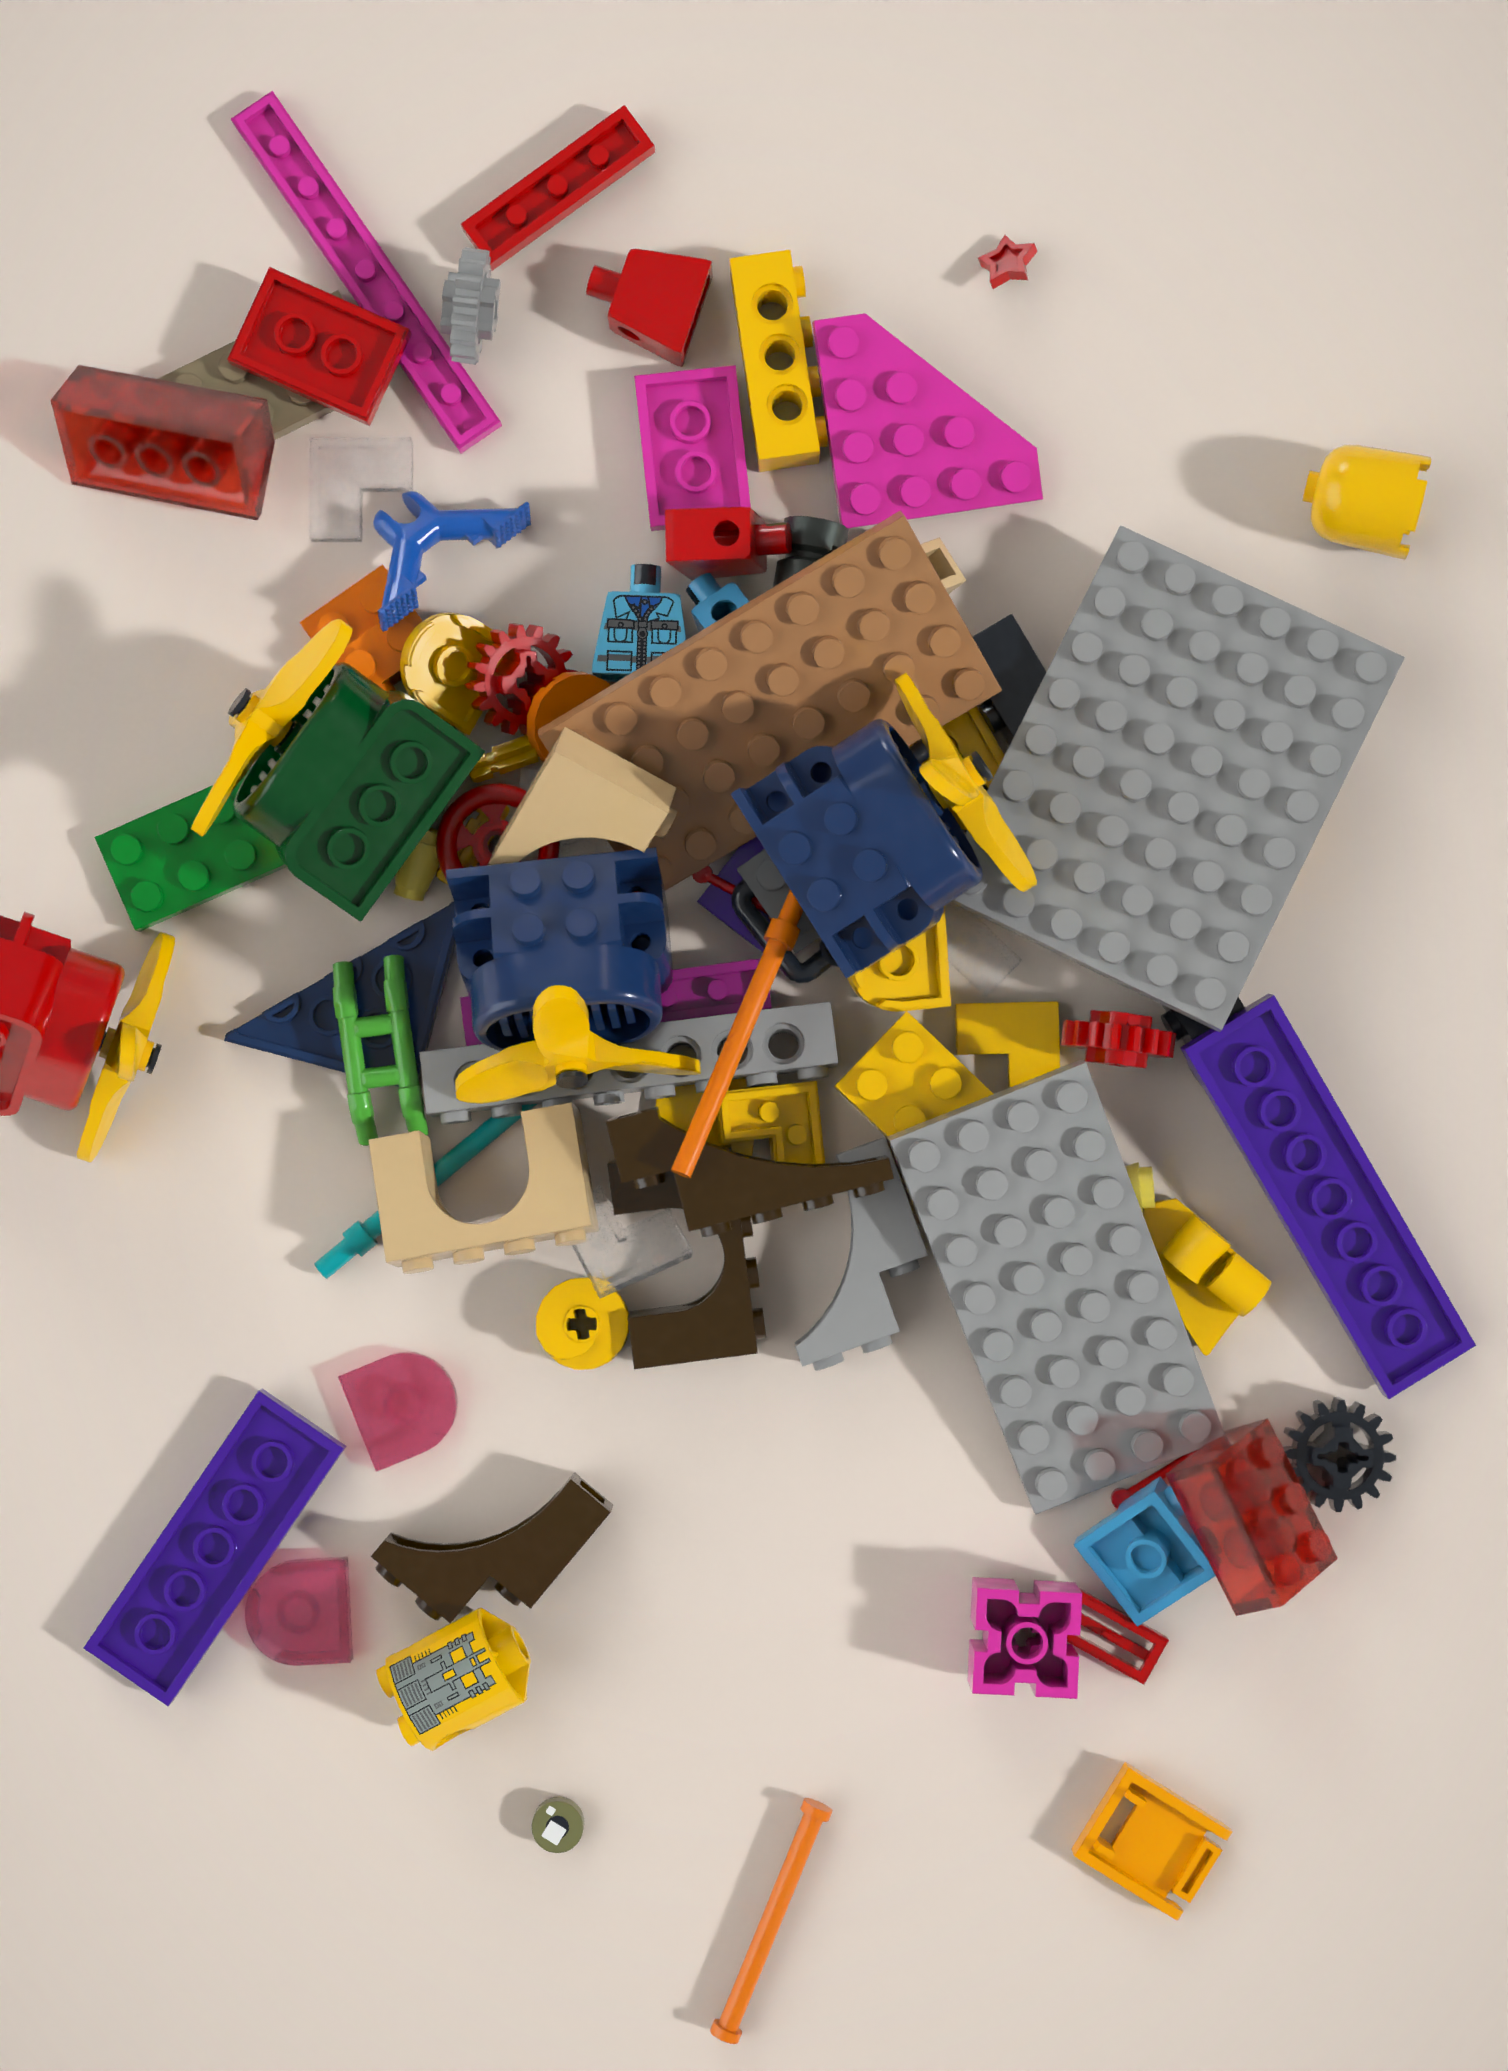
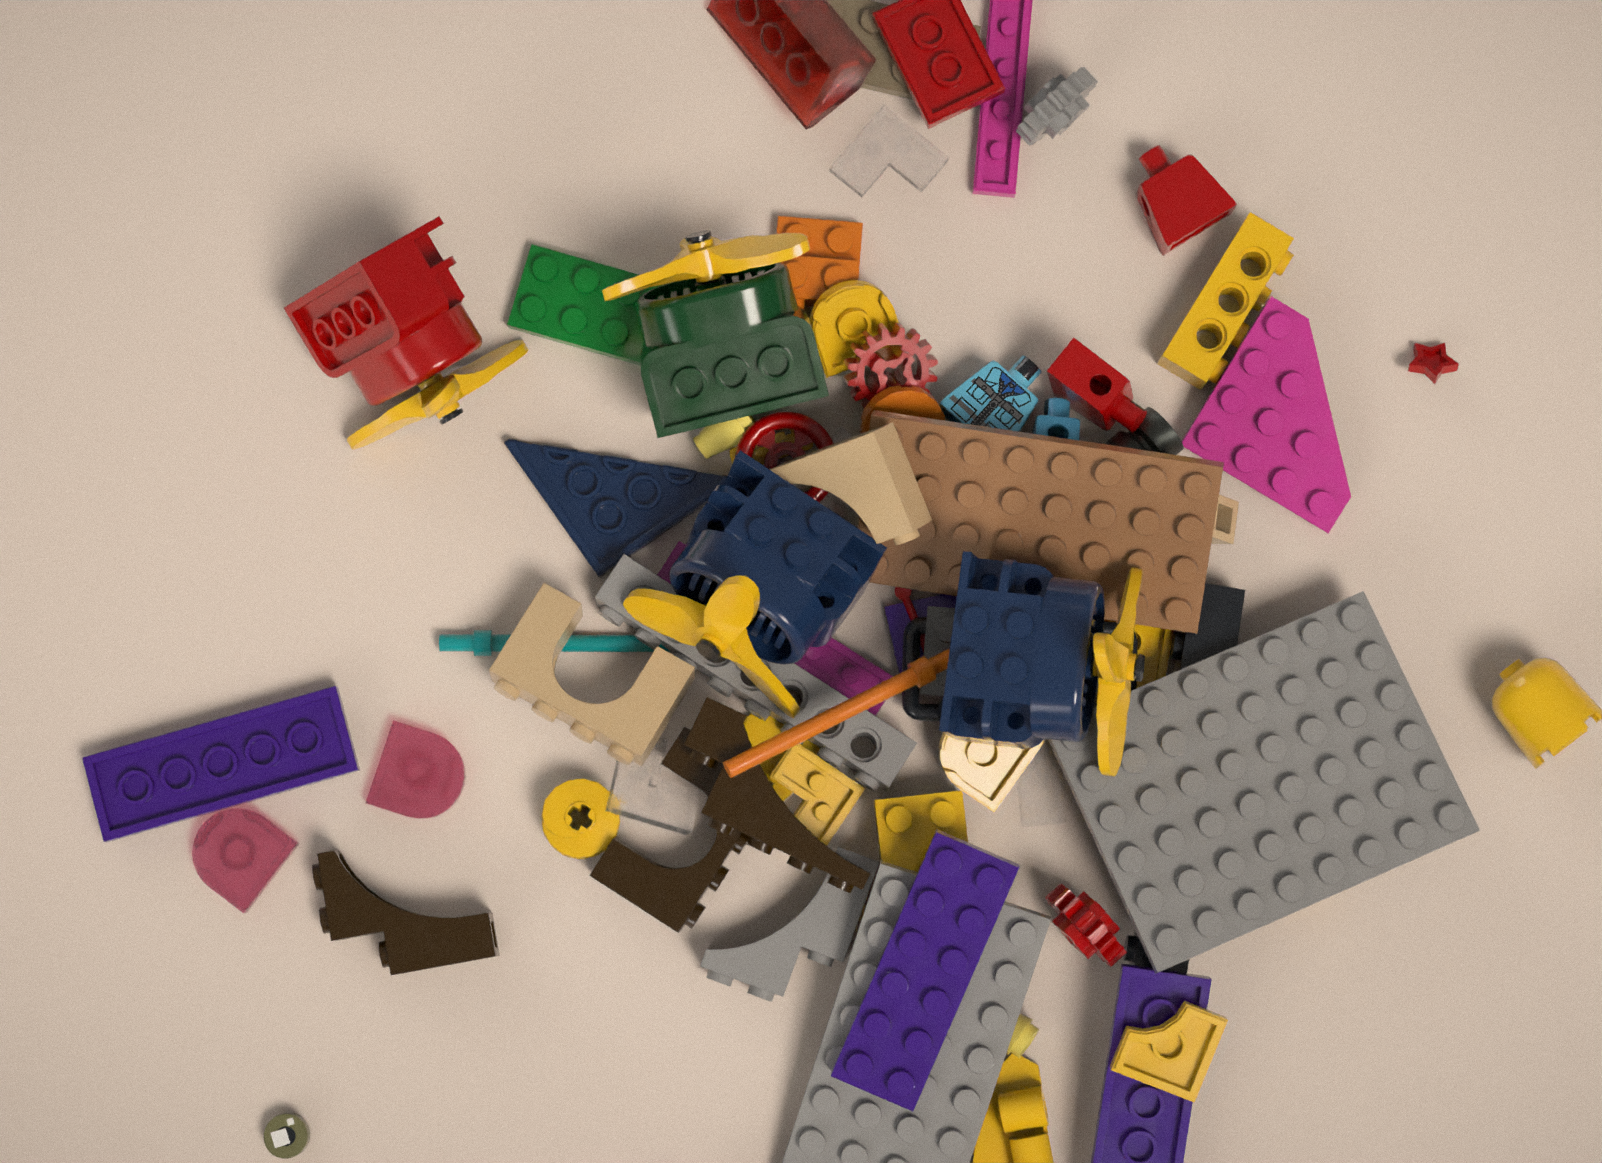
camera: 35 degrees right, 5 degrees down
(395, 1023) = (595, 504): bright green piece -> none
(430, 527) = (913, 225): blue piece -> none
(457, 1678) = (305, 980): yellow cylinder -> none
(504, 758) = (836, 411): yellow axle -> none
(559, 187) = (1177, 76): red plate -> none
(691, 441) = (1128, 308): dark pink plate -> none
(1010, 1202) = (925, 970): none -> dark purple plate
(1019, 1029) = (1037, 868): yellow tile -> none
(1294, 1090) = (1173, 1053): none -> yellow tile

